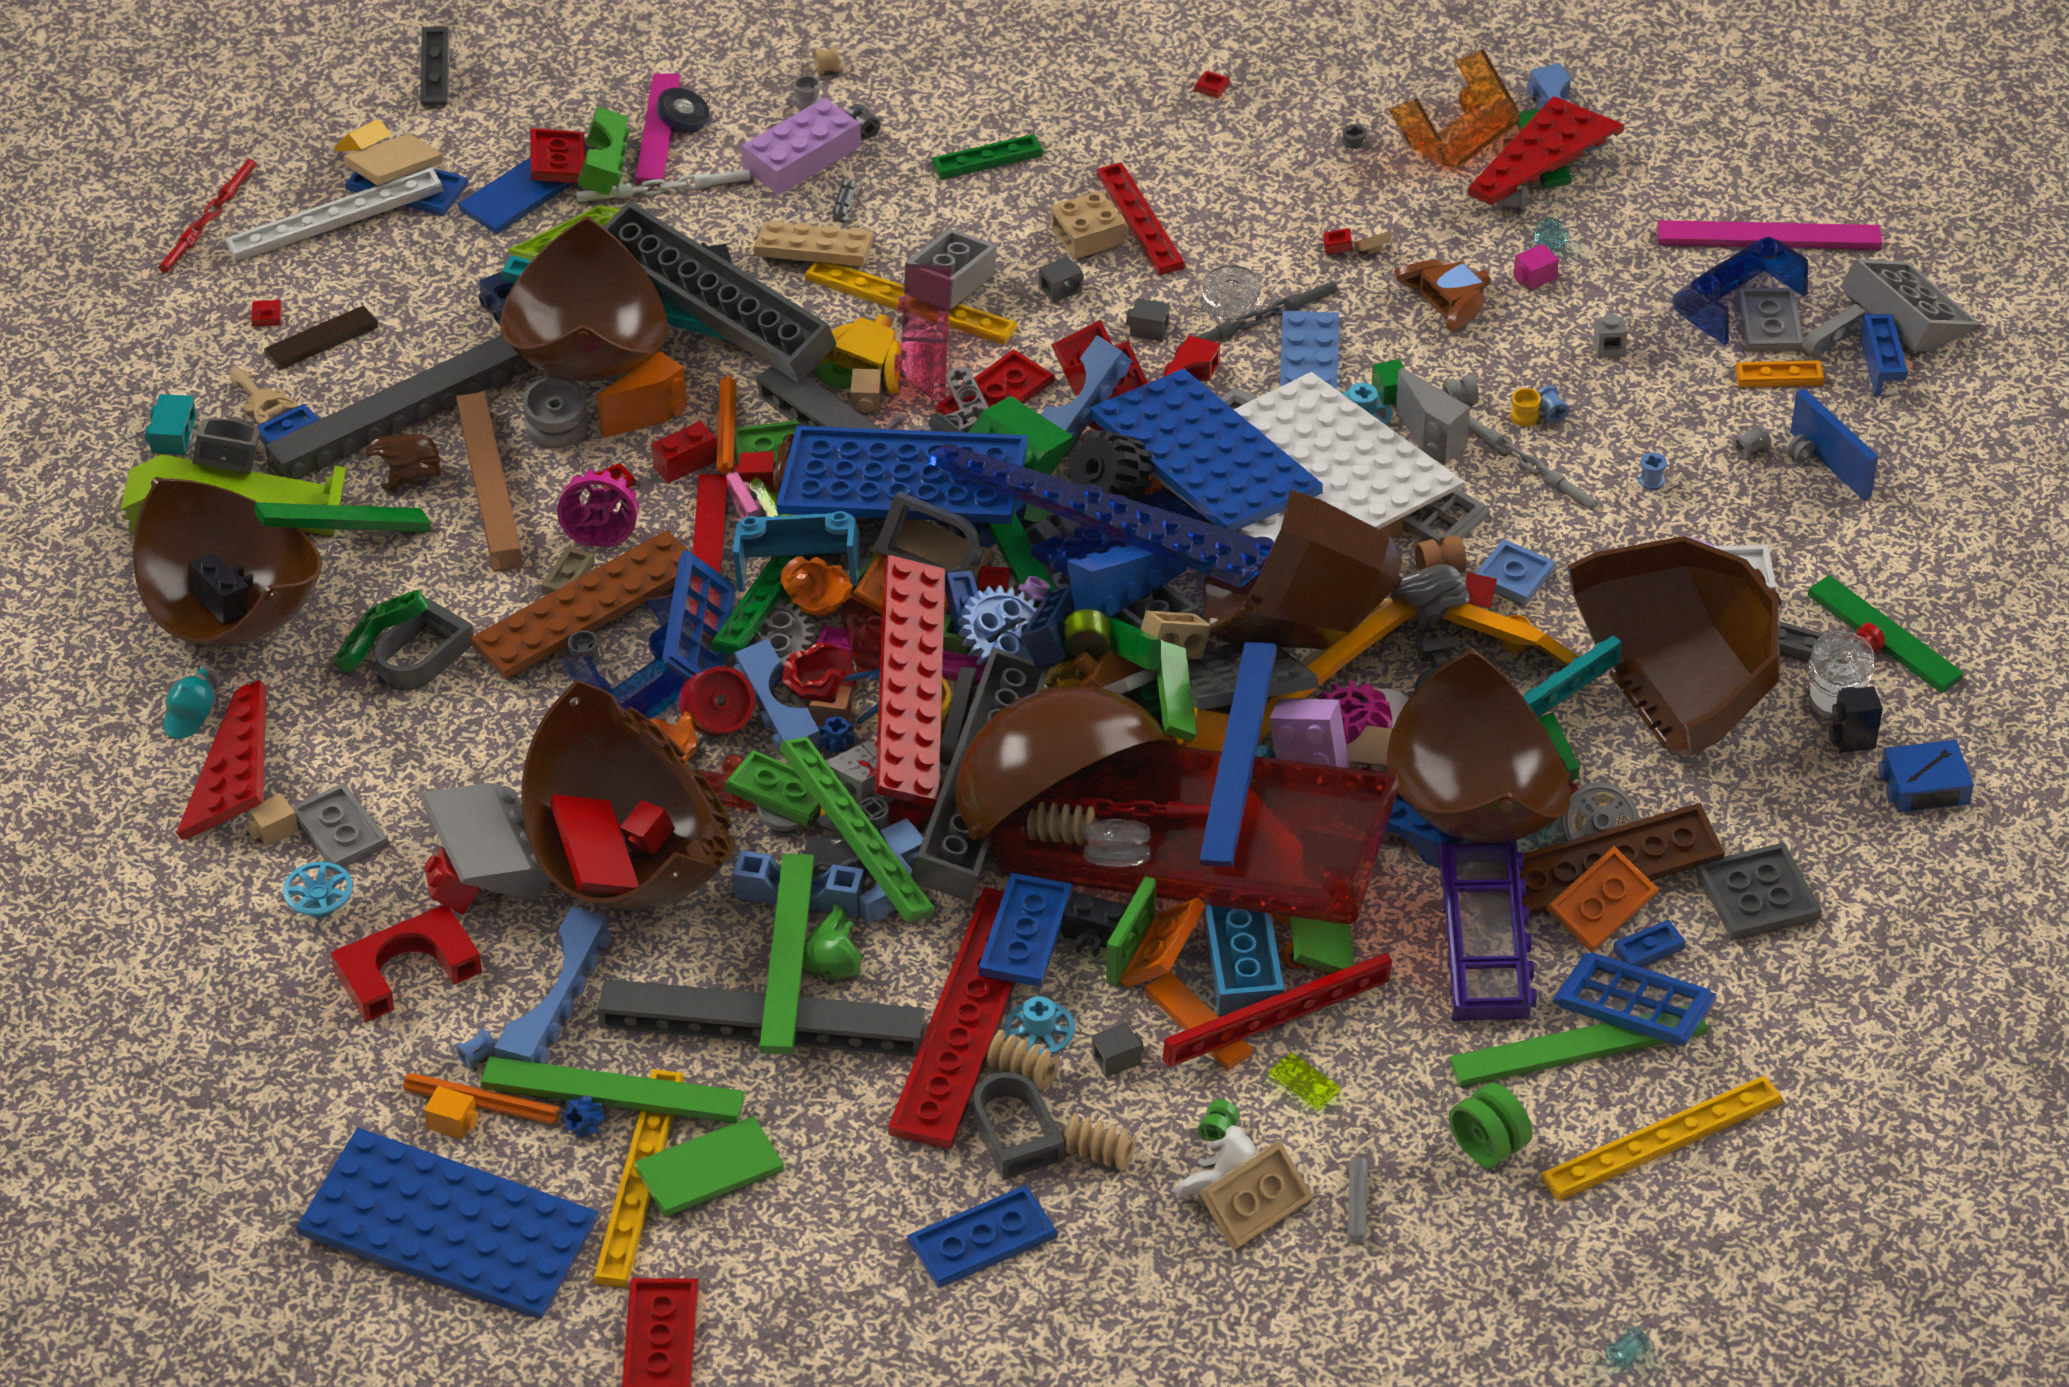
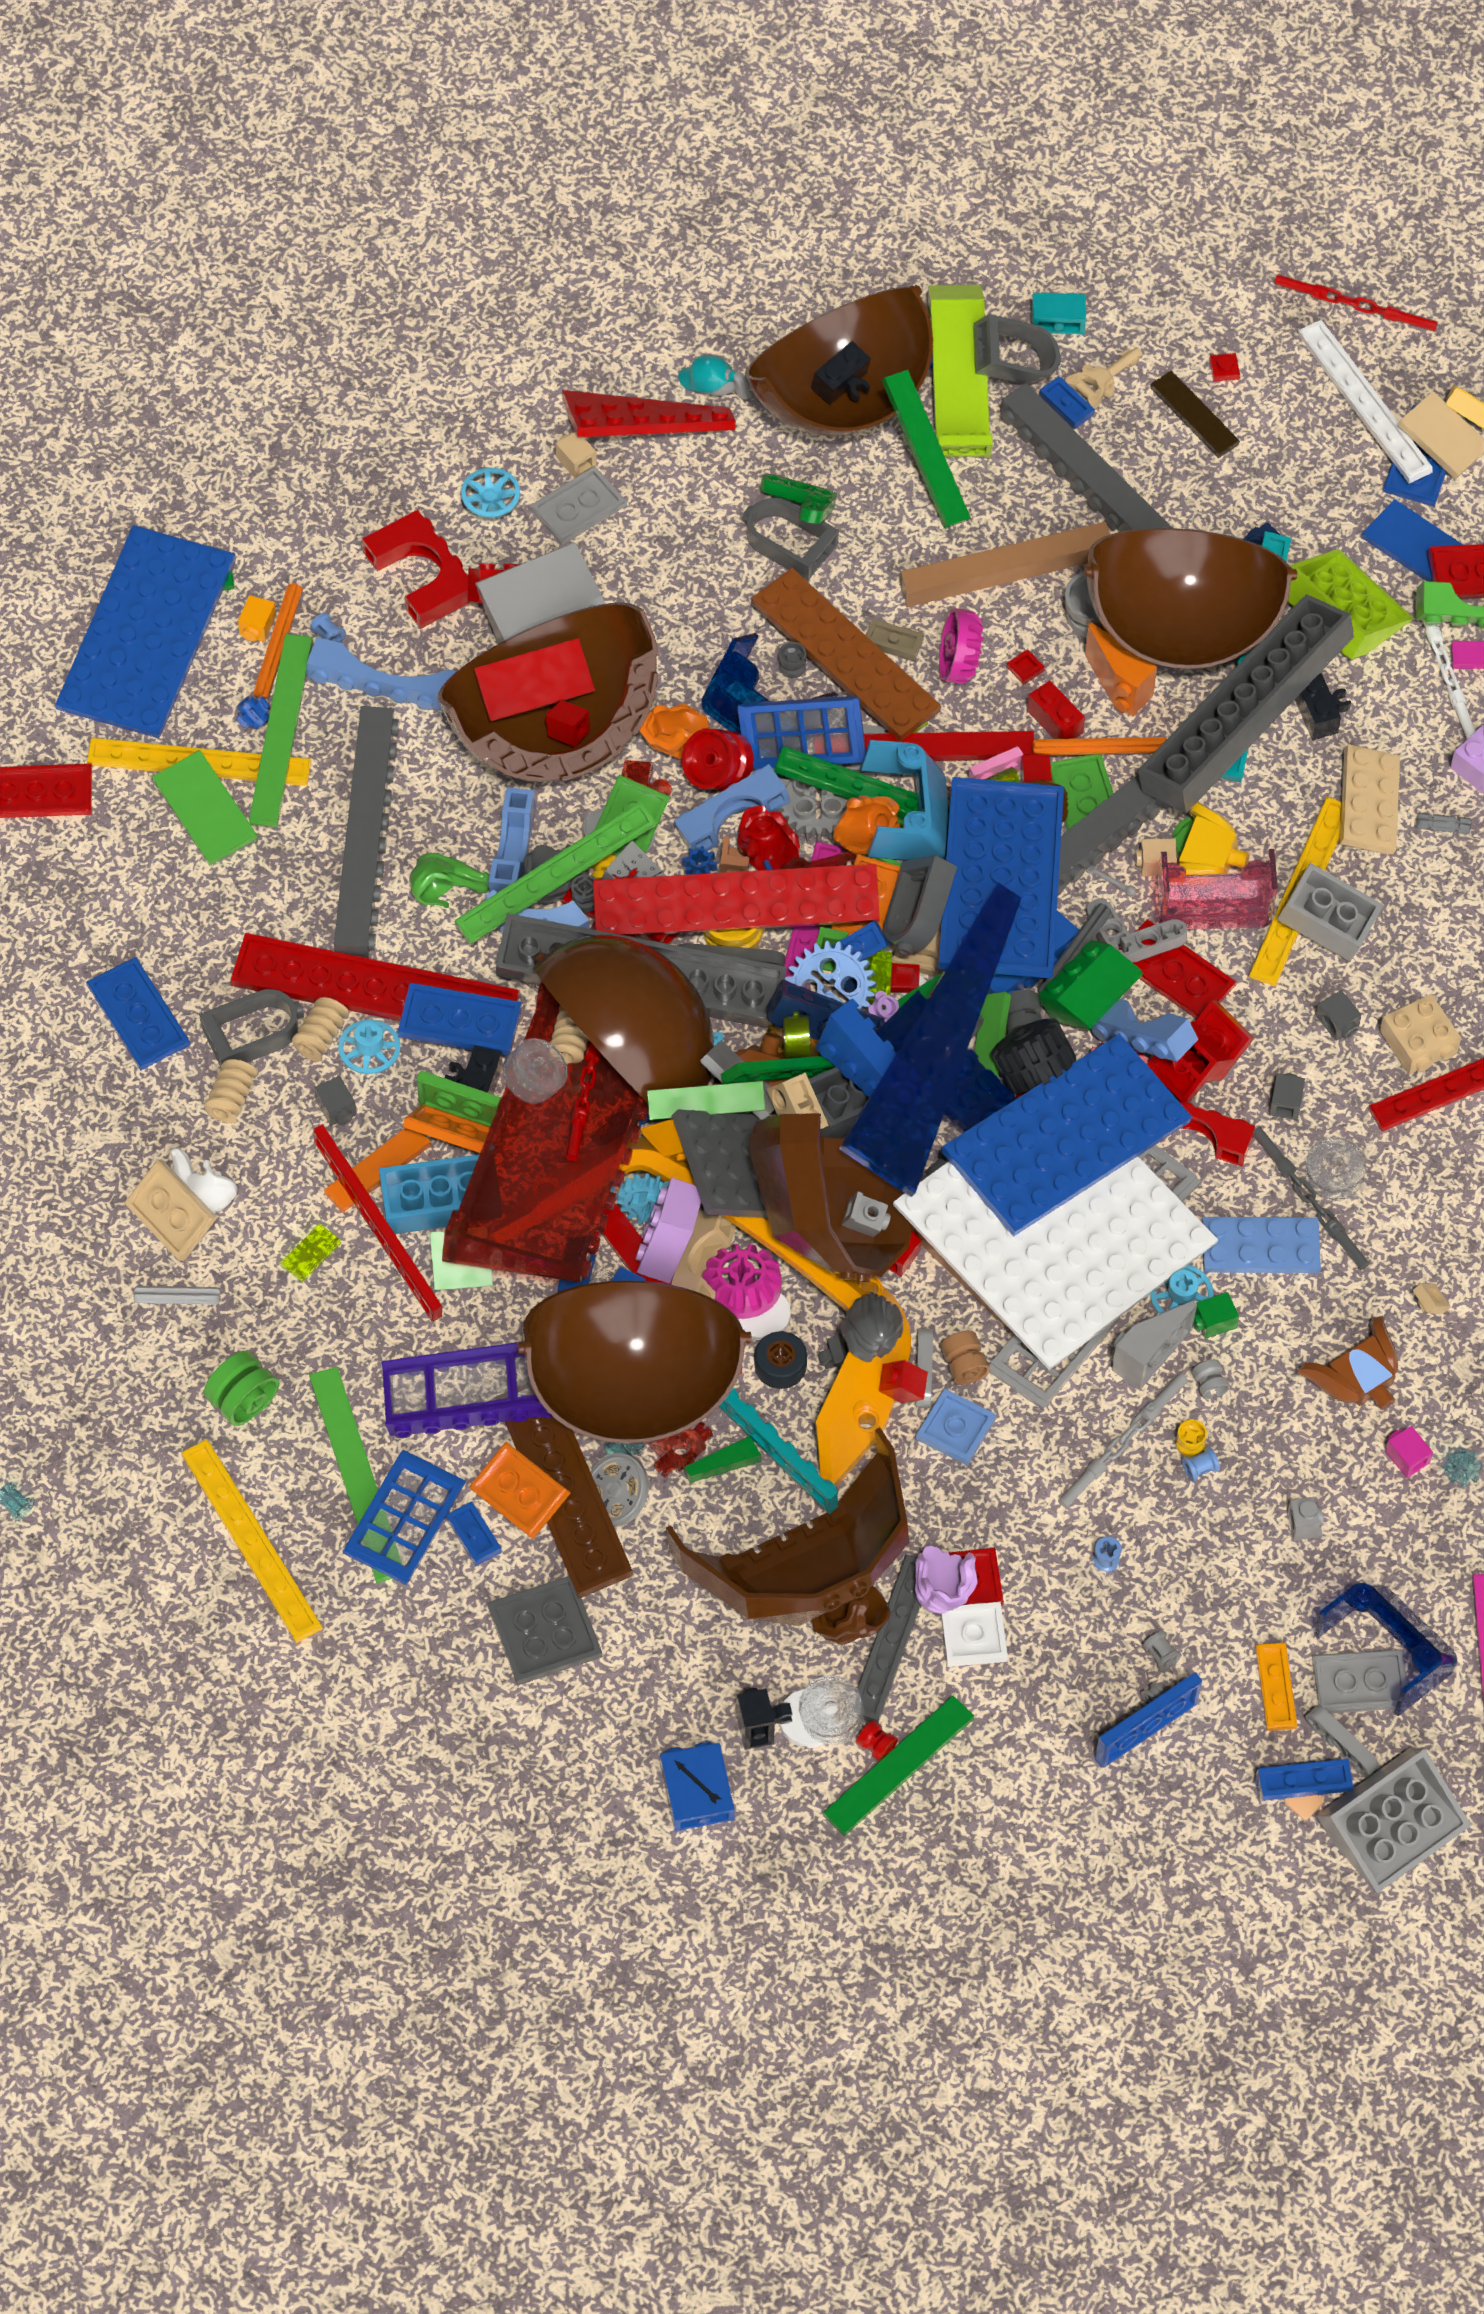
camera: 85 degrees right, 15 degrees up
(407, 458) = (1024, 493): reddish brown hair -> none
(787, 954) = (423, 837): bright green tile -> none
(1219, 1117) = (256, 1182): bright green wheel -> none
(1238, 755) = (618, 1149): blue tile -> none
(1338, 241) = (1432, 1267): red tile -> none

